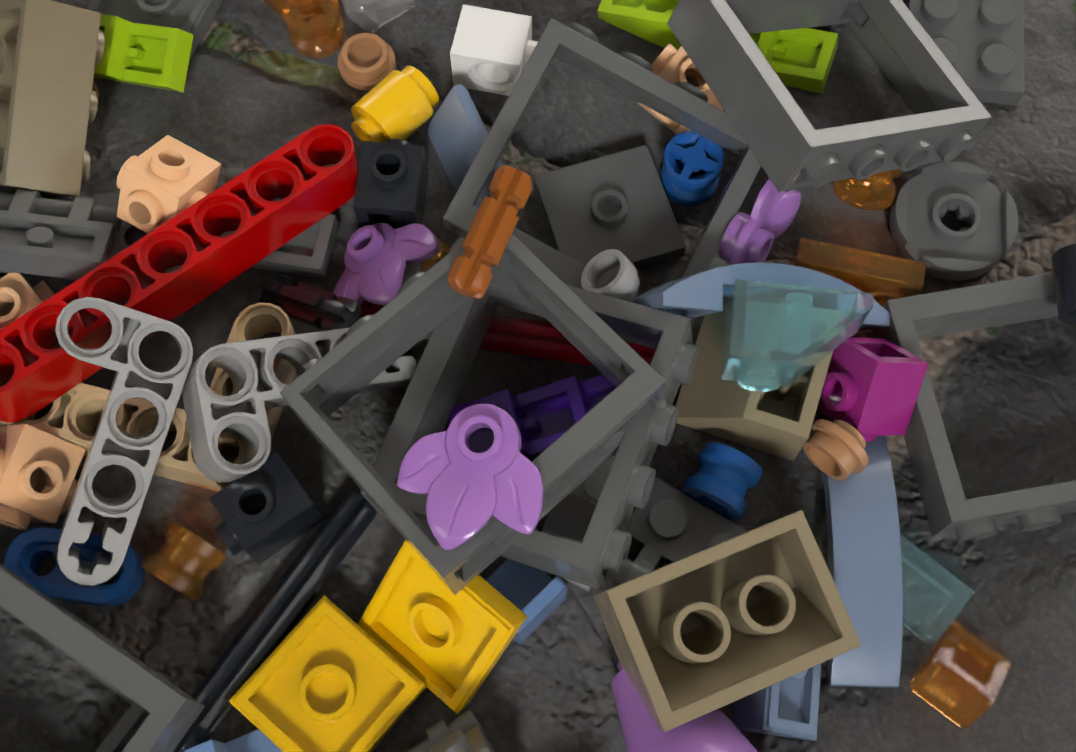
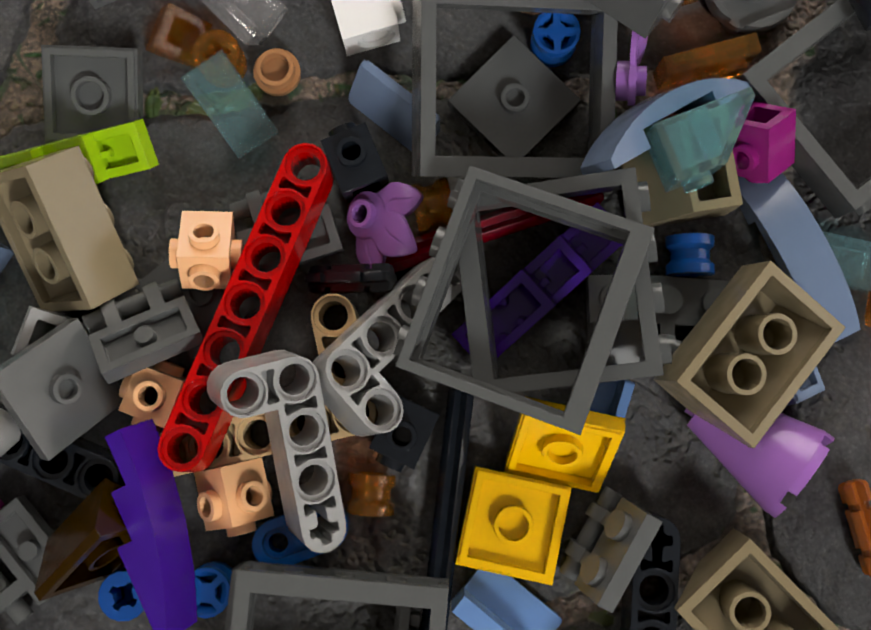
camera: 25 degrees left, 15 degrees up
(293, 64) = (229, 104): none -> clear light blue tile
(394, 106) = (321, 99): yellow brick -> none
(473, 486) = (569, 368): medium lavender plate -> none
(490, 232) = (478, 180): dark orange axle -> none
(611, 275) = (558, 156): light grey hinge -> none
(836, 449) = (761, 198): medium nougat plate -> none

